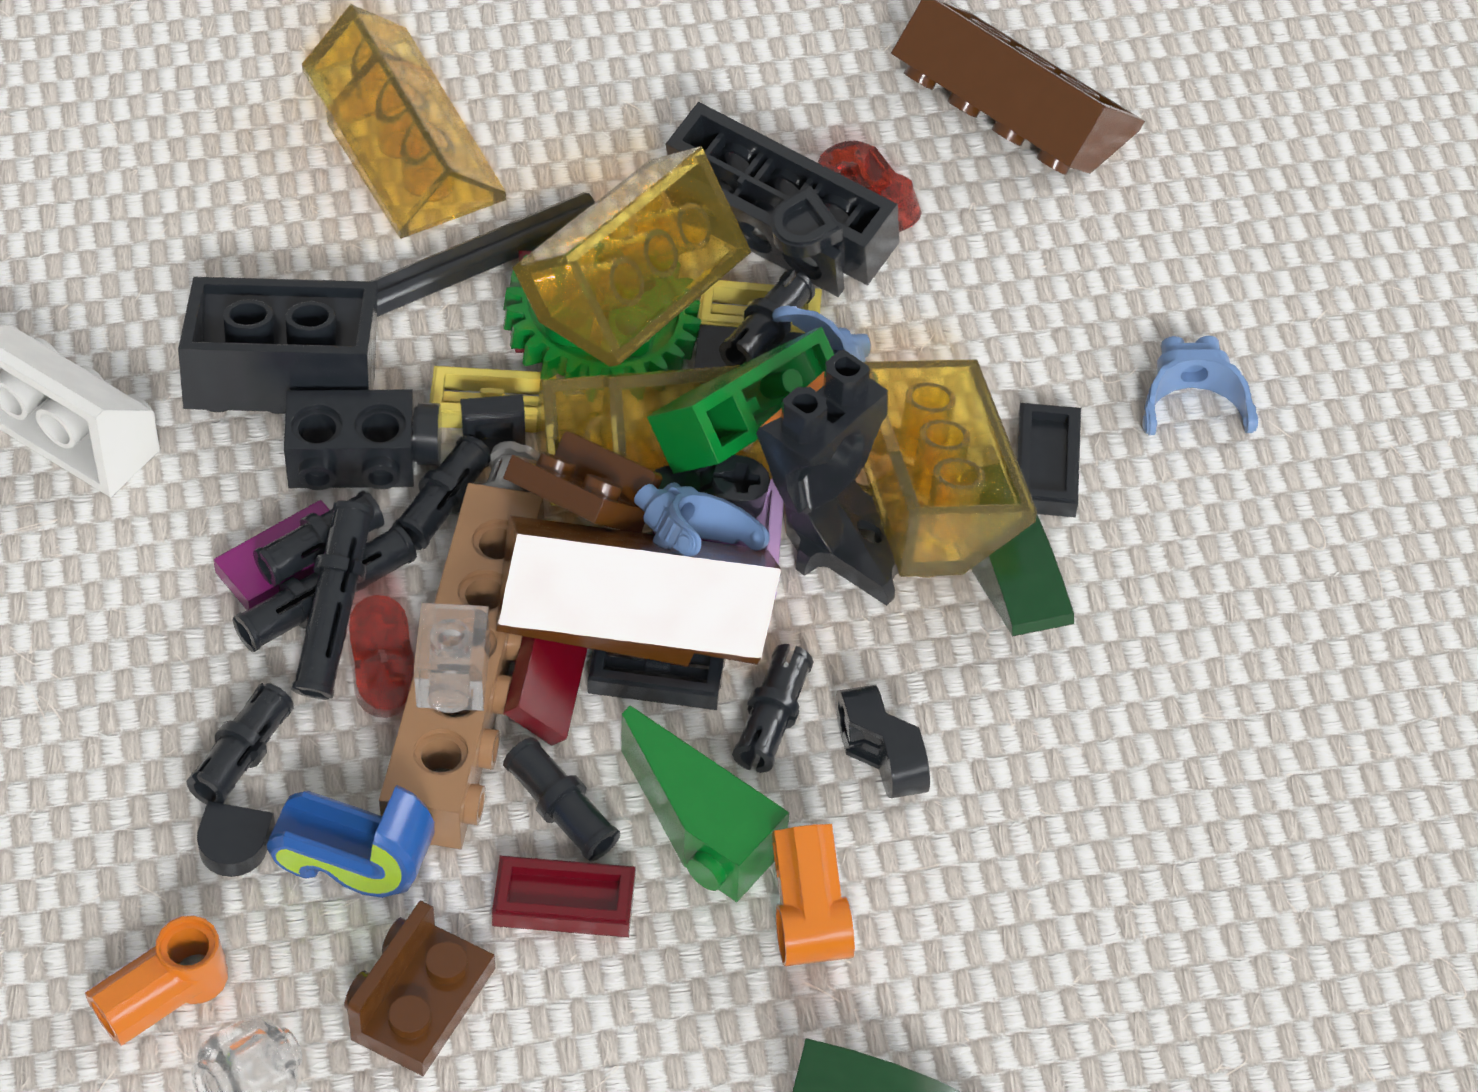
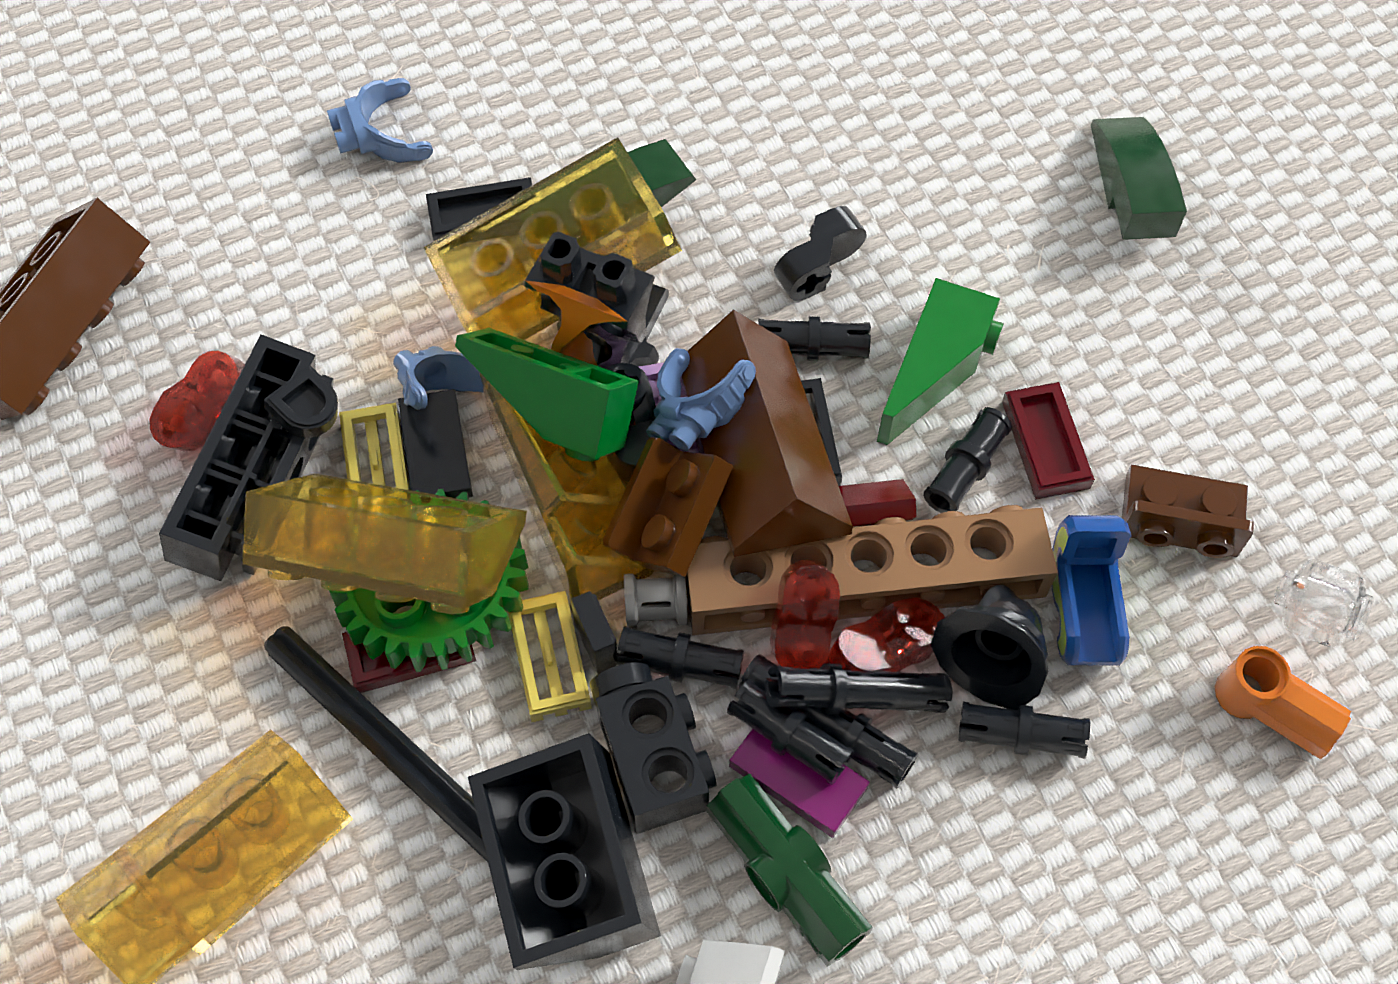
camera: 105 degrees left, 10 degrees up
(196, 512) = (788, 869): none -> dark green piece
(233, 838) = (1112, 704): black tile -> none
(337, 737) = (994, 649): none -> black piece
(426, 571) = (804, 615): none -> clear red piece
(452, 657) = (915, 540): clear brick -> none
(758, 328) = (409, 429): black pin -> none
(812, 917) = (996, 256): orange piece -> none

